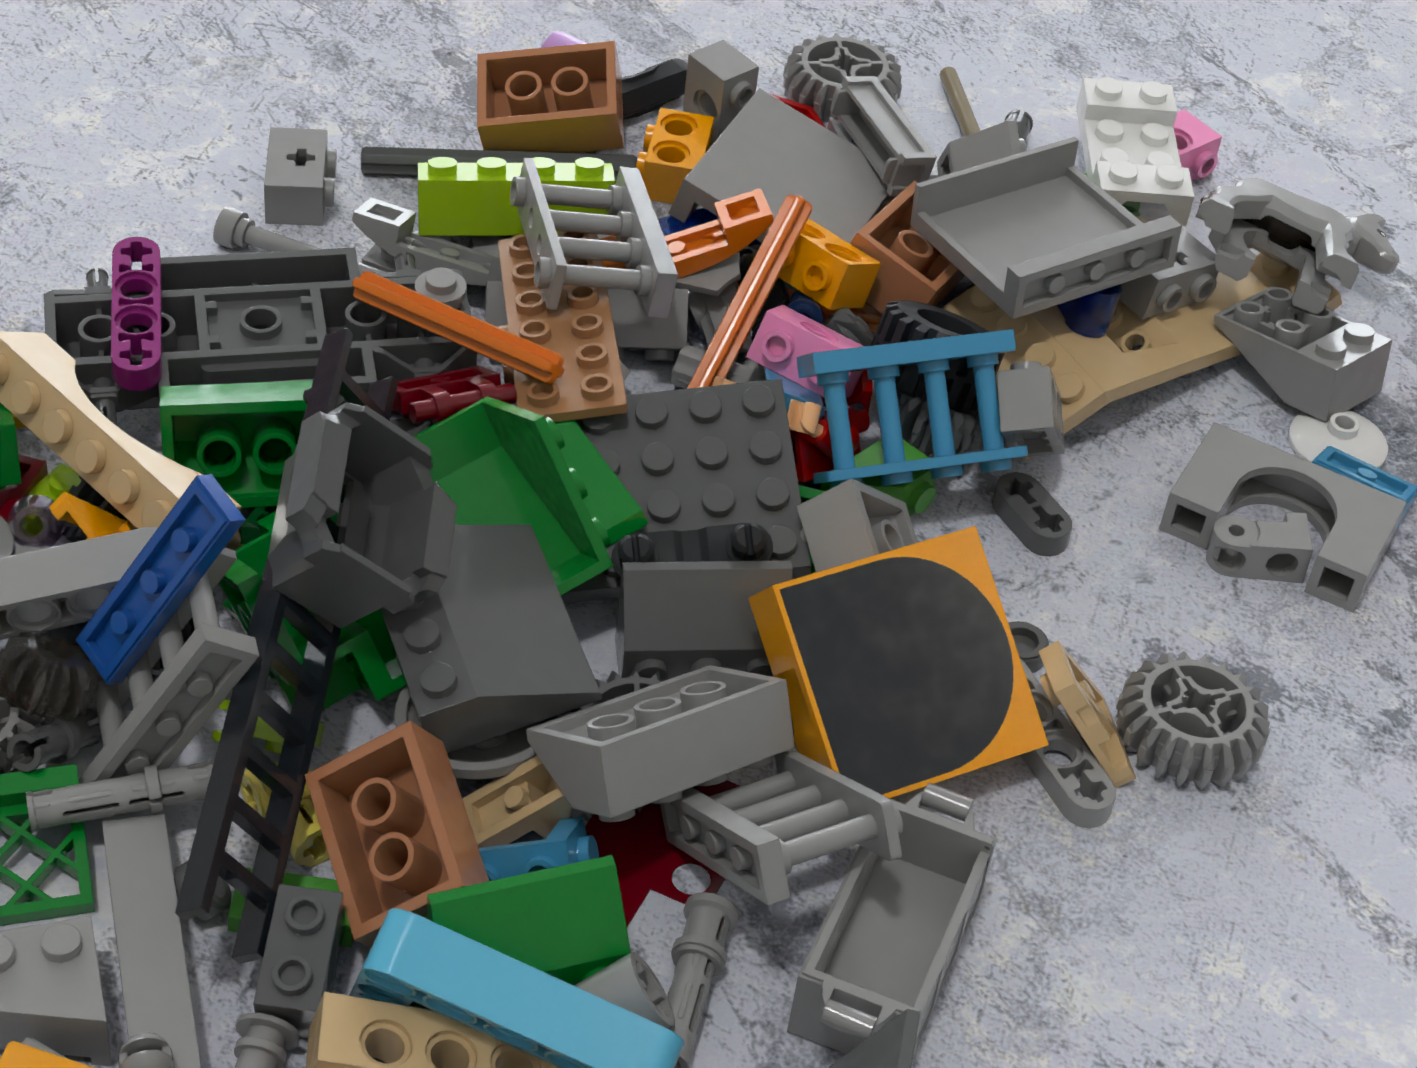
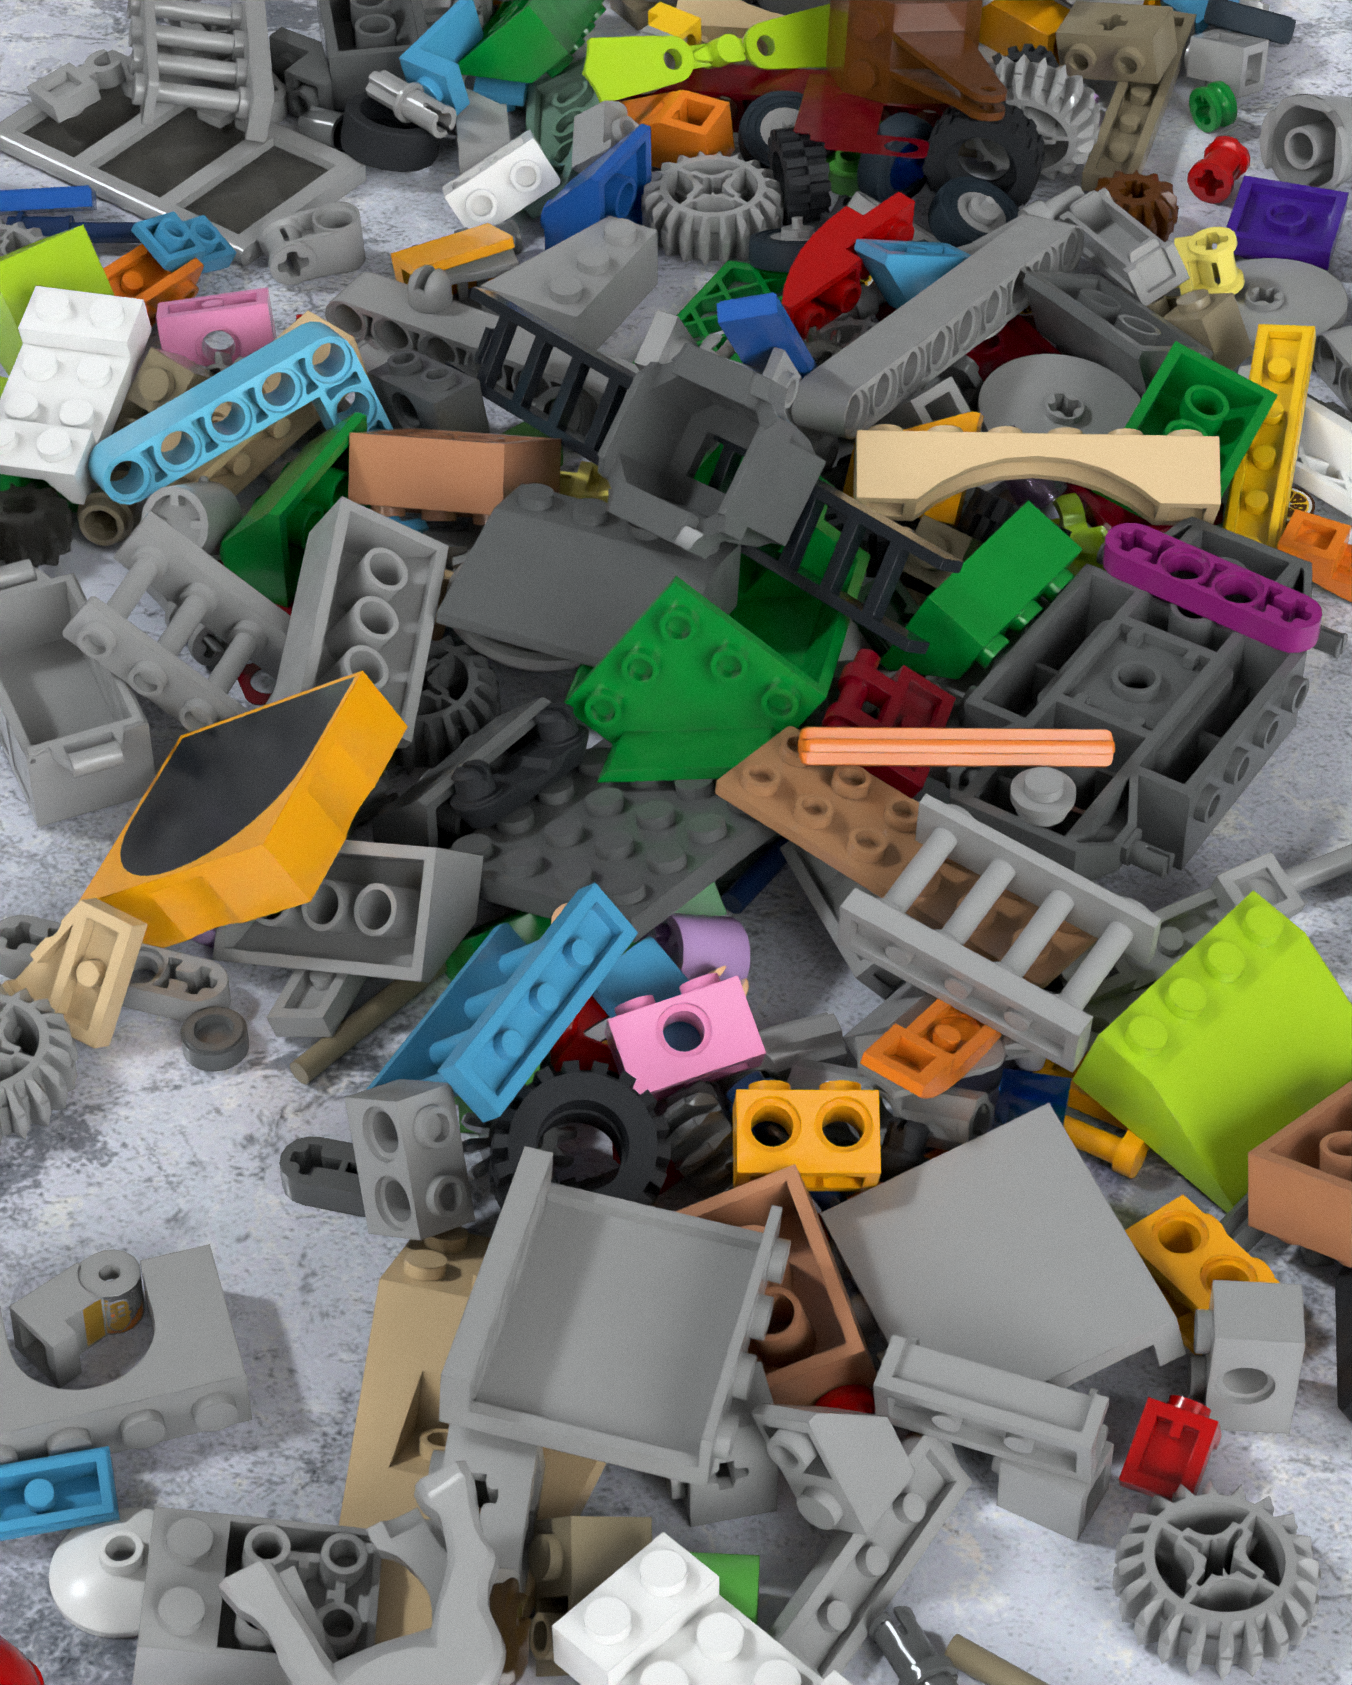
camera: 140 degrees right, 0 degrees up
(753, 292) = (806, 1035): orange axle -> none

